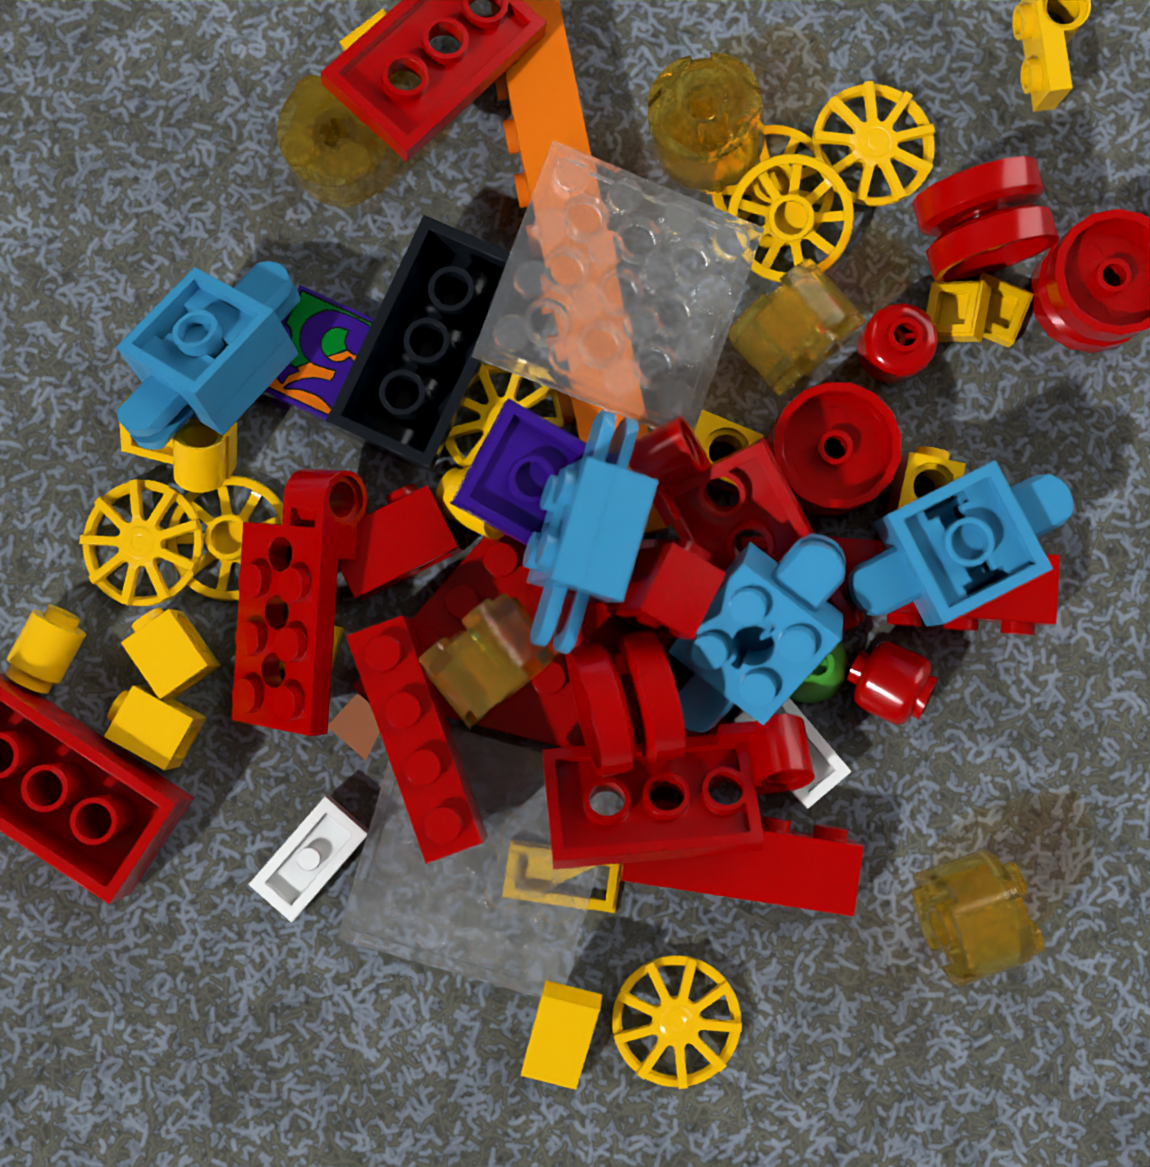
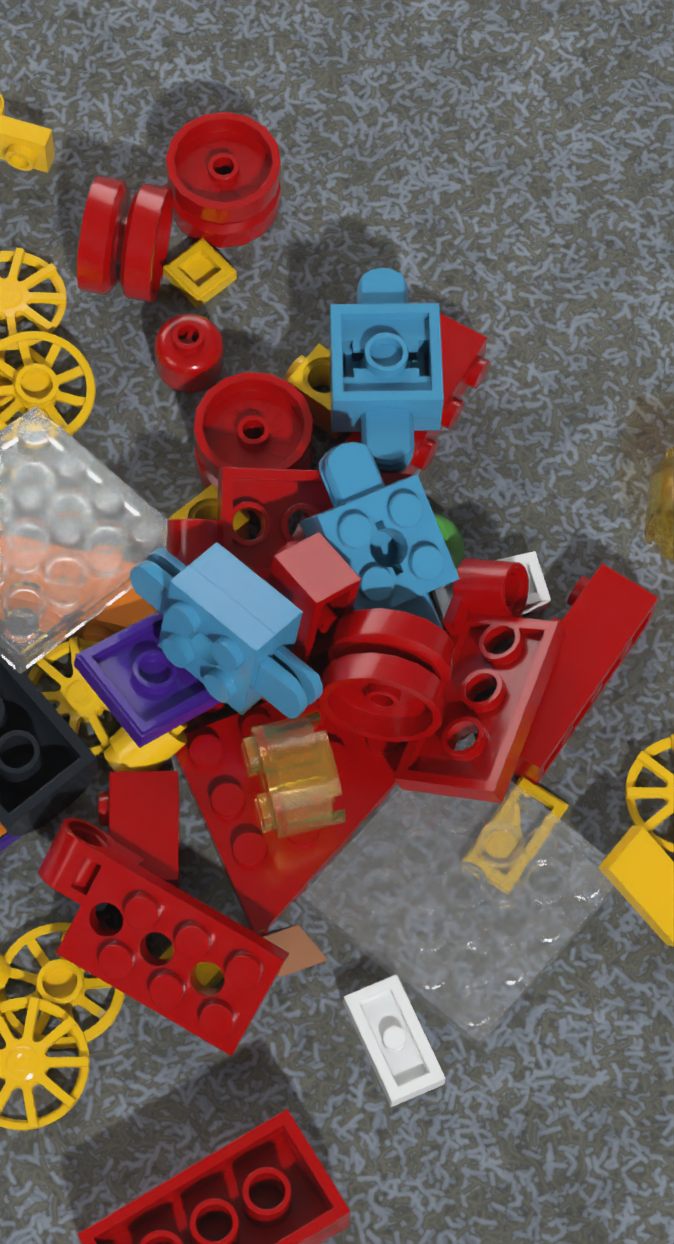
camera: 70 degrees left, 20 degrees down
(45, 649) = (75, 1190): yellow brick -> none
(153, 727) = (201, 1121): yellow brick -> none
(169, 652) = (140, 1077): yellow brick -> none
(417, 739) = (331, 874): red brick -> none
(794, 326) = (134, 418): clear yellow brick -> none
(892, 682) = (475, 486): red head -> none
(959, 310) = (185, 294): yellow tile -> none

